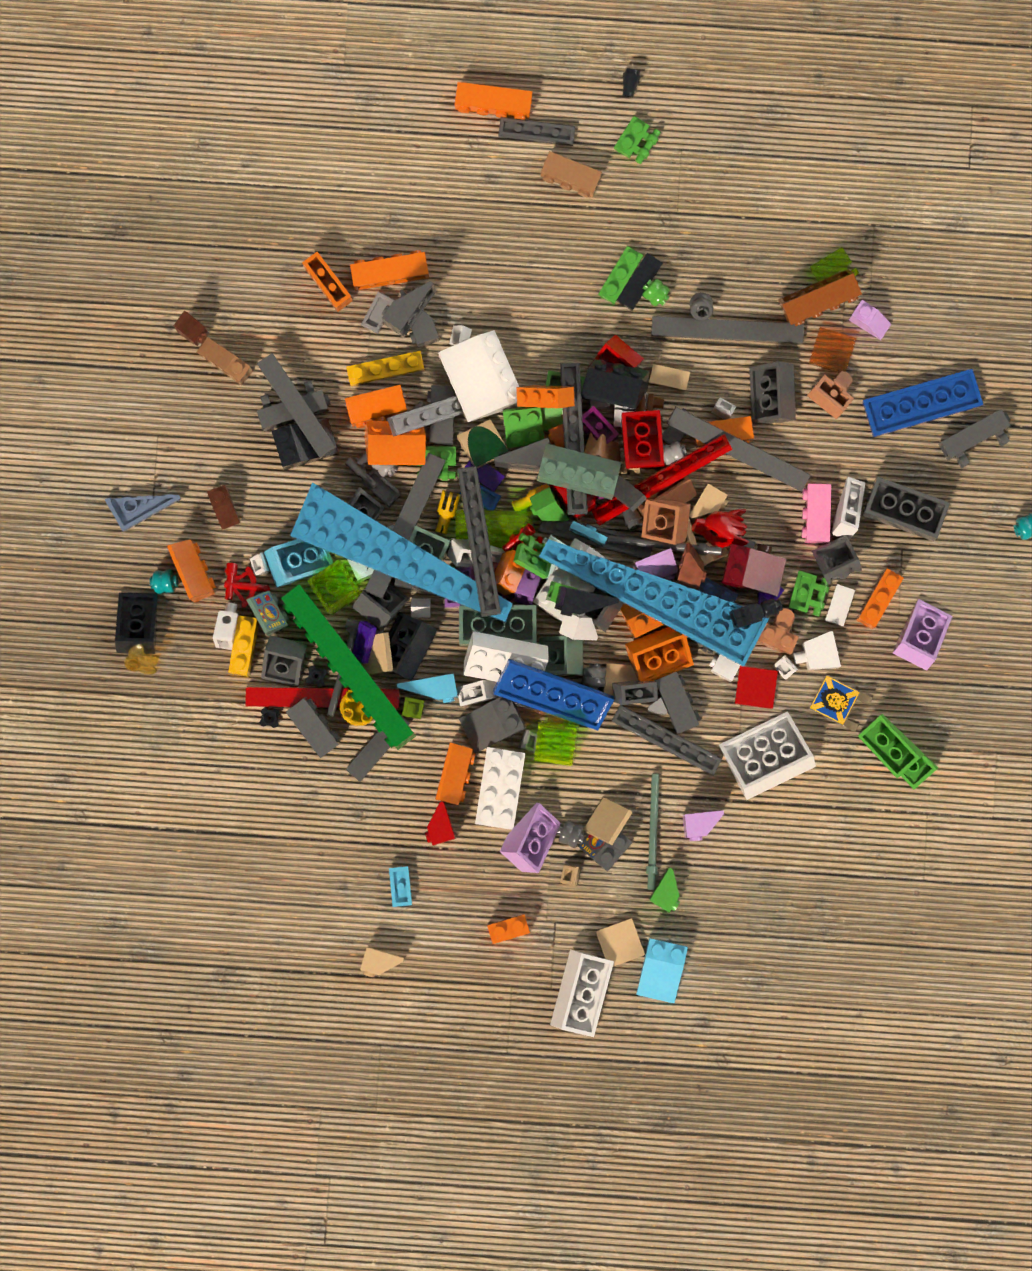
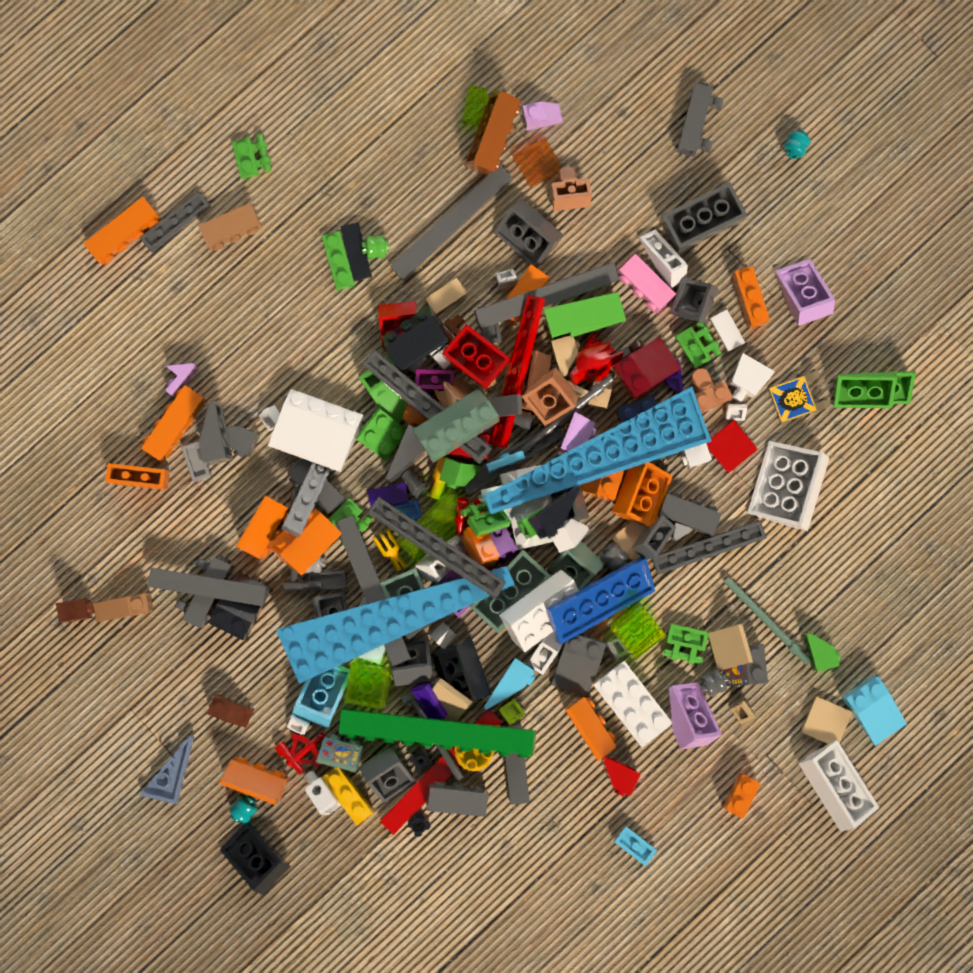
camera: 45 degrees left, 0 degrees up
(139, 661) = (285, 884): clear yellow plate -> none
(378, 961) = (677, 914): tan slope -> none
(385, 368) = (242, 494): yellow plate -> none
(432, 244) = (184, 374): none -> lavender slope
(482, 443) = (366, 476): dark green tile -> none
(510, 485) = (415, 484): none -> dark grey cone
(545, 396) = (376, 397): orange brick -> none
(584, 783) = (686, 637): none -> bright green plate
(630, 81) = (204, 121): black cone -> none
(673, 452) = (506, 343): light grey piece -> none
(691, 568) = (603, 411): copper slope -> none
(700, 824) = (795, 581): lavender slope -> none
(701, 306) = (417, 224): dark grey piece -> none
(749, 489) = (584, 315): none -> bright green slope
(755, 613) = (680, 396): black piece -> none
(922, 403) = (636, 134): blue plate -> none

